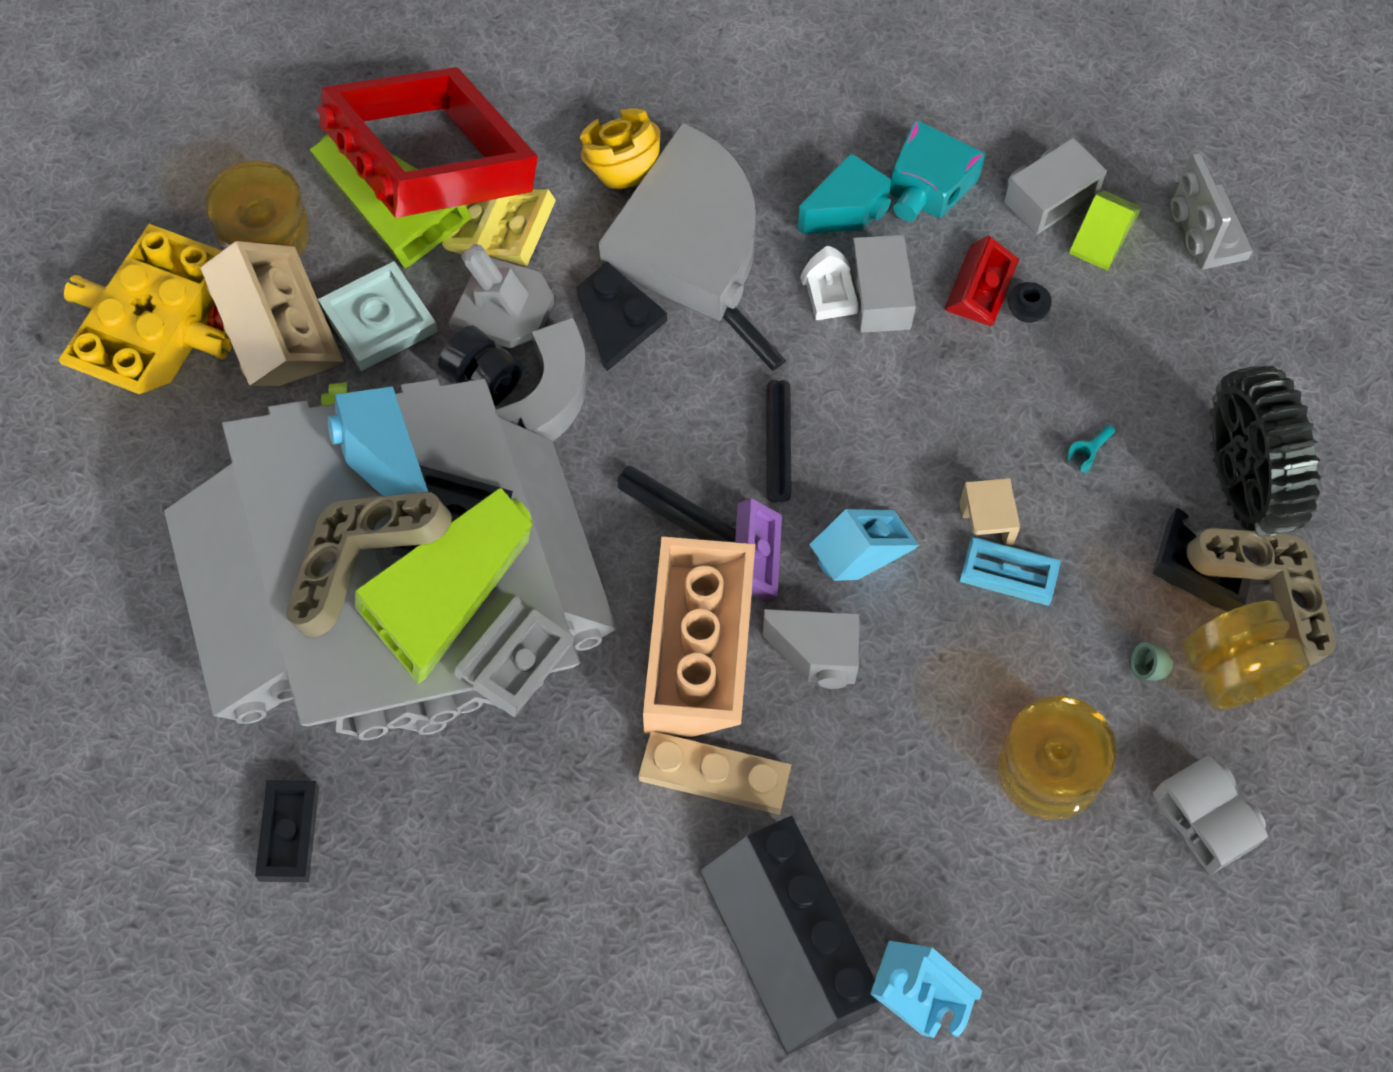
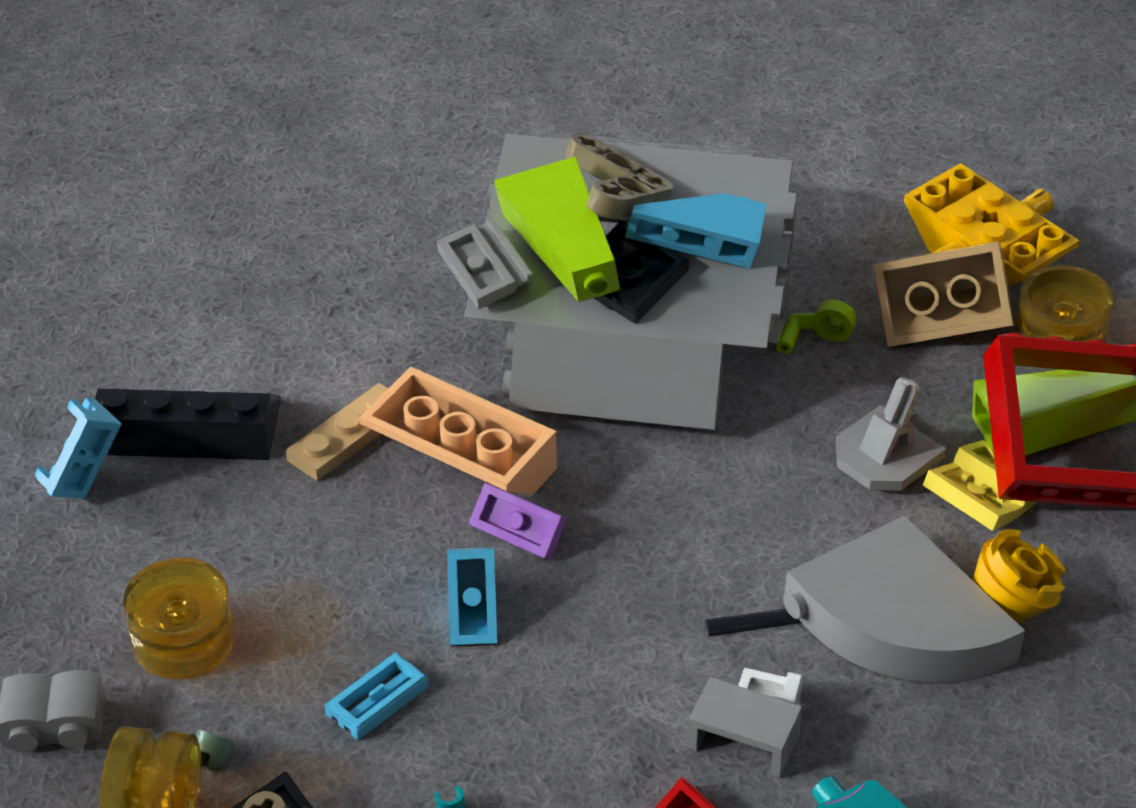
camera: 120 degrees right, 20 degrees down
(287, 831) = (465, 195): black plate -> none
(377, 315) = (925, 359): light aqua plate -> none
(474, 356) = (812, 409): black wheel -> none
(562, 386) = (768, 456): light grey arch -> none
(617, 313) = (824, 524): black wing -> none
(674, 506) = (605, 490): black axle -> none
(778, 440) = (622, 587): black axle -> none
(816, 644) = (402, 521): light grey slope -> none
(846, 199) = (870, 744): teal slope -> none
(991, 508) = (436, 692): tan panel -> none

